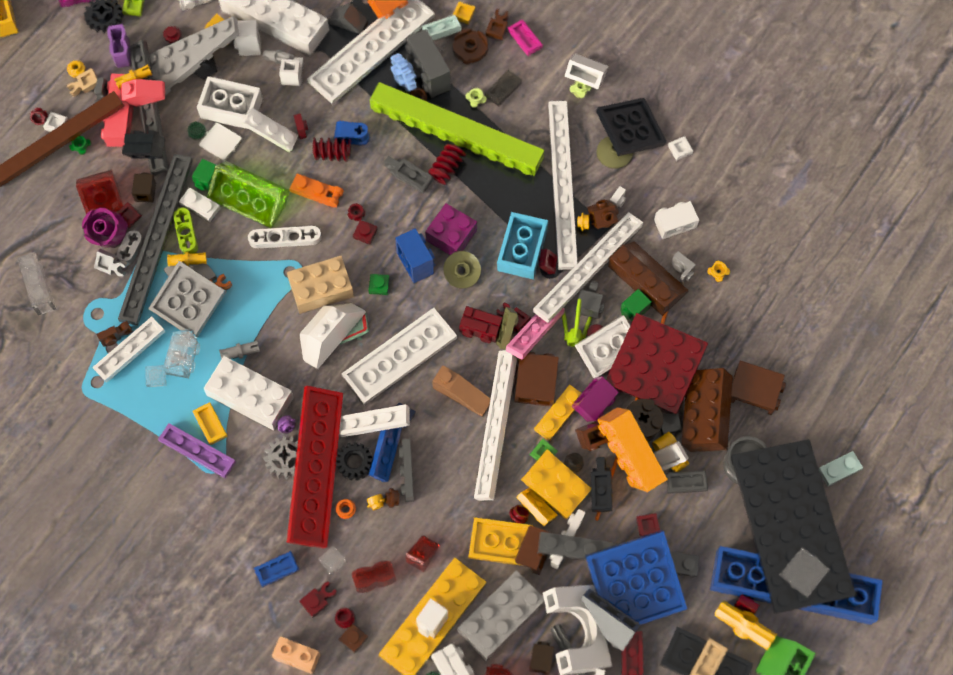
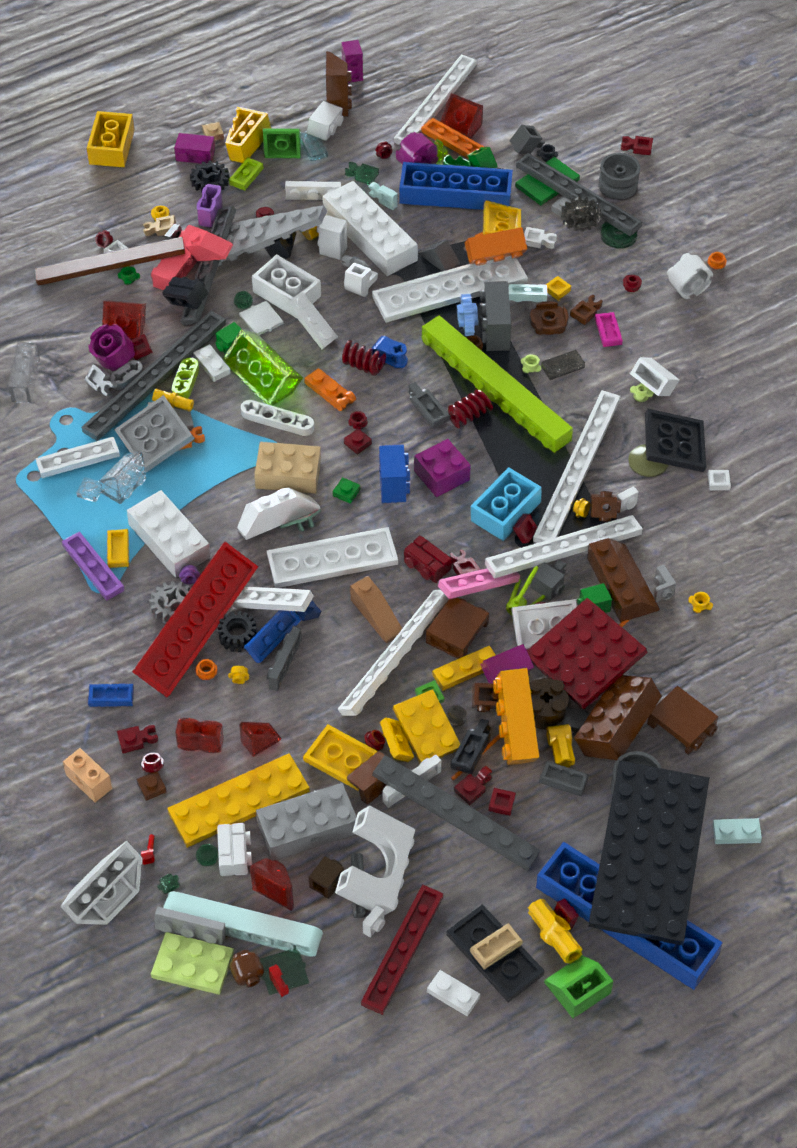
camera: 25 degrees right, 15 degrees down
(113, 334) = (69, 439): reddish brown plate -> none
(140, 73) = (216, 230): yellow pin -> none
(144, 187) = (167, 329): dark brown brick -> none
(240, 350) = (181, 496): light grey pin -> none
(301, 126) = (344, 329): dark red plate -> none
(332, 560) = (168, 710): clear plate -> none
(392, 497) = (256, 676): reddish brown plate -> none
(431, 619) = (233, 788): white piece -> none
(468, 262) = (432, 496): olive dish -> none
(505, 333) = (456, 562): olive plate -> none
(612, 622) = (413, 865): slope -> none
(617, 521) = (473, 787): none -> dark red plate
(638, 578) = (459, 842): blue plate -> none
(671, 456) = (555, 743): white tile -> none
(676, 219) = (679, 539): white brick -> none
(804, 572) = (637, 894): clear piece -> none

